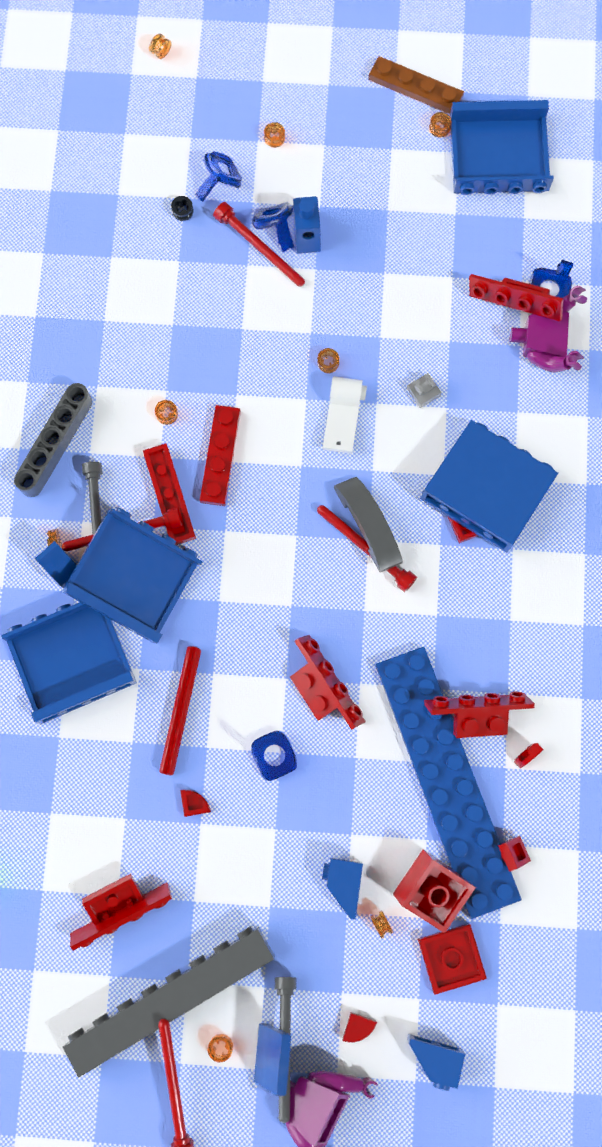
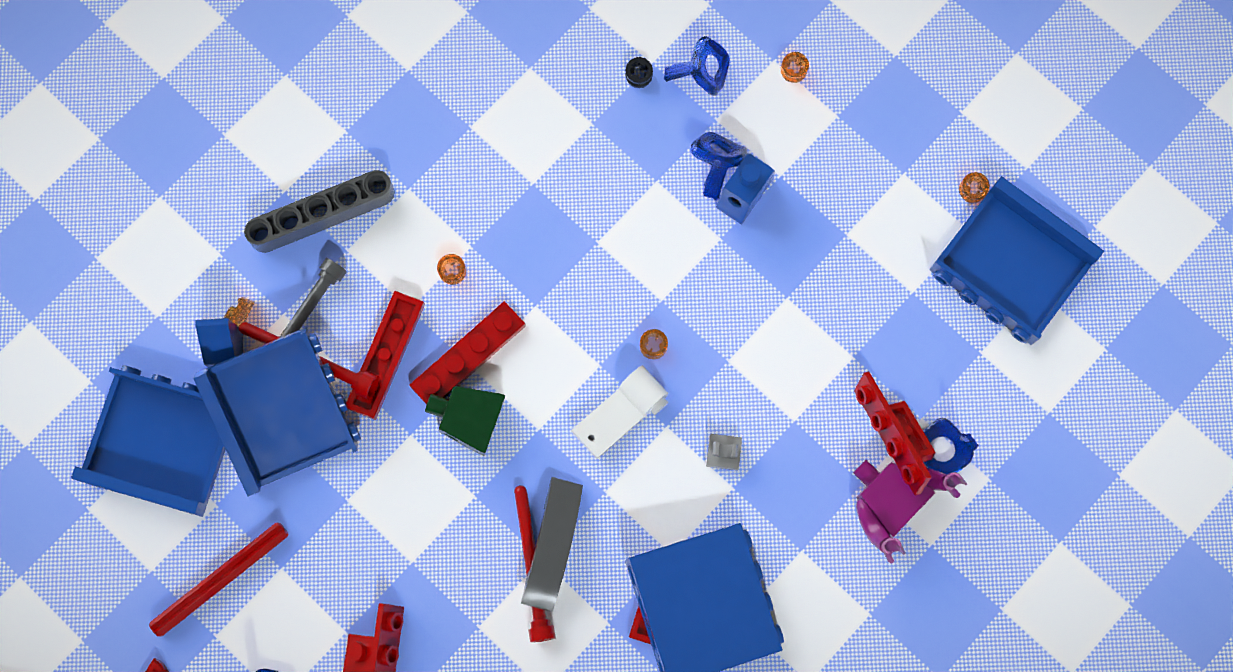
camera: 35 degrees right, 0 degrees up
(225, 214) = (675, 112): red piece -> none
(253, 489) = (467, 416): none -> dark green torso
(414, 85) = (983, 125): dark orange plate -> none

